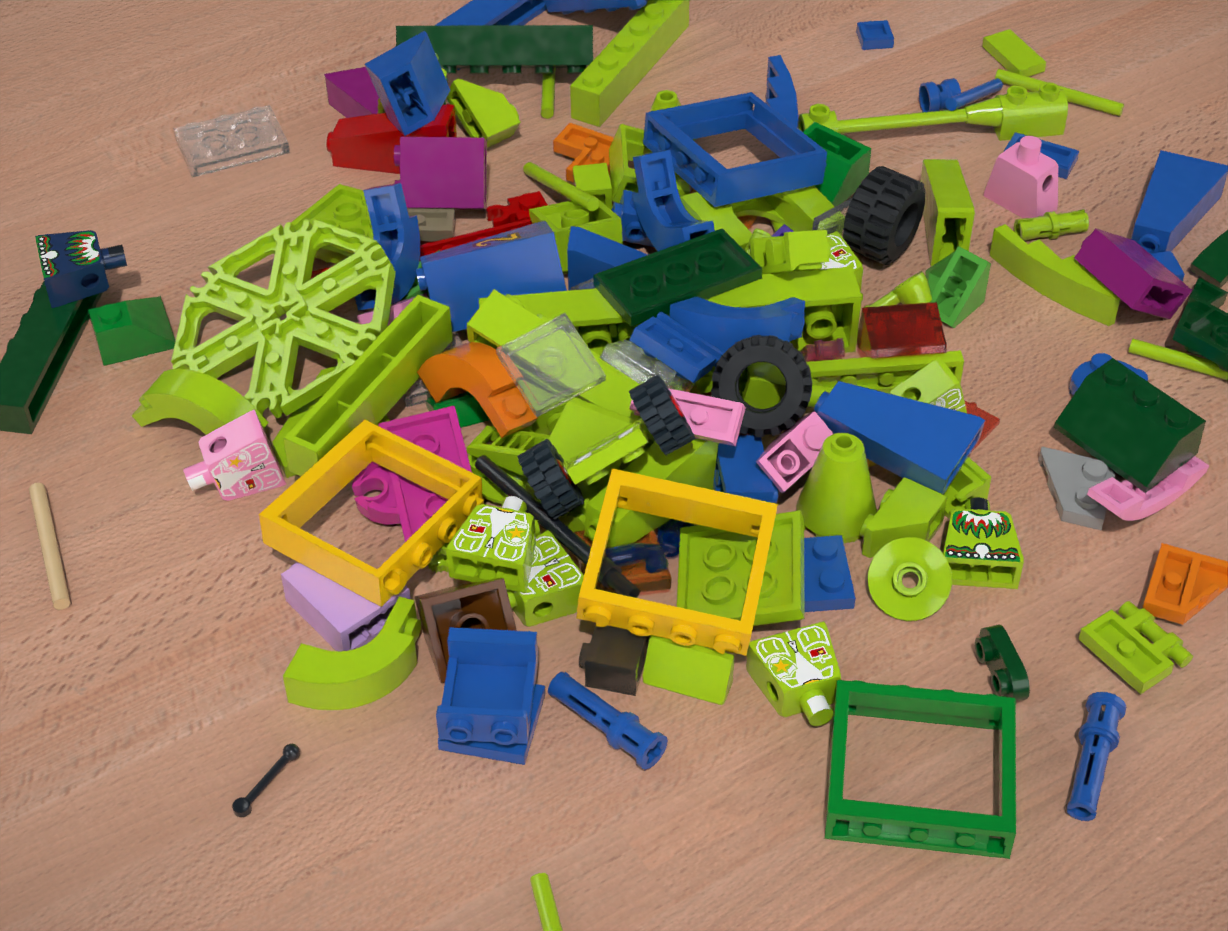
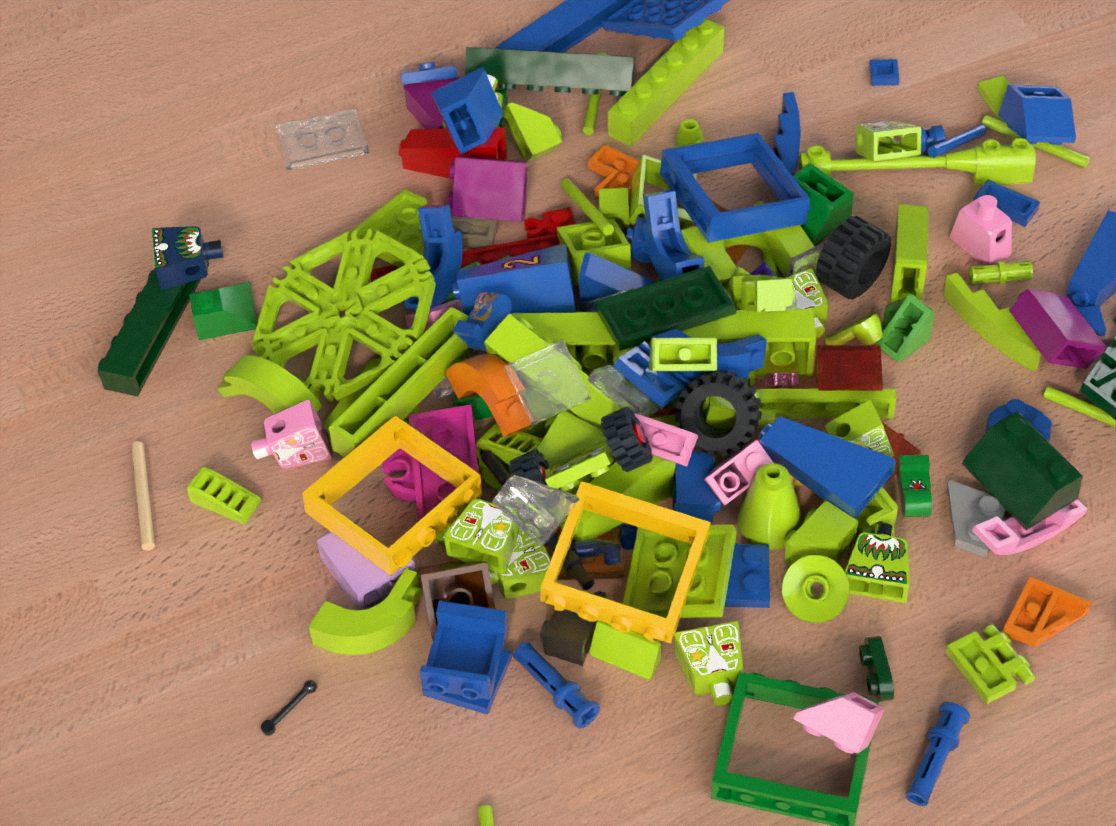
camera: 10 degrees right, 5 degrees up
(130, 524) = (205, 486): none -> lime slope
(348, 60) = (428, 72): none -> plate
(464, 297) = (487, 314): none -> blue leg
(558, 503) = (535, 507): none -> clear wing
(713, 318) = (683, 354): none -> lime slope
(883, 96) = (877, 140): none -> lime torso
(982, 718) = (845, 719): none -> bright pink slope
(1003, 456) = (914, 485): none -> green leg
(1060, 59) = (1039, 113): none -> blue slope

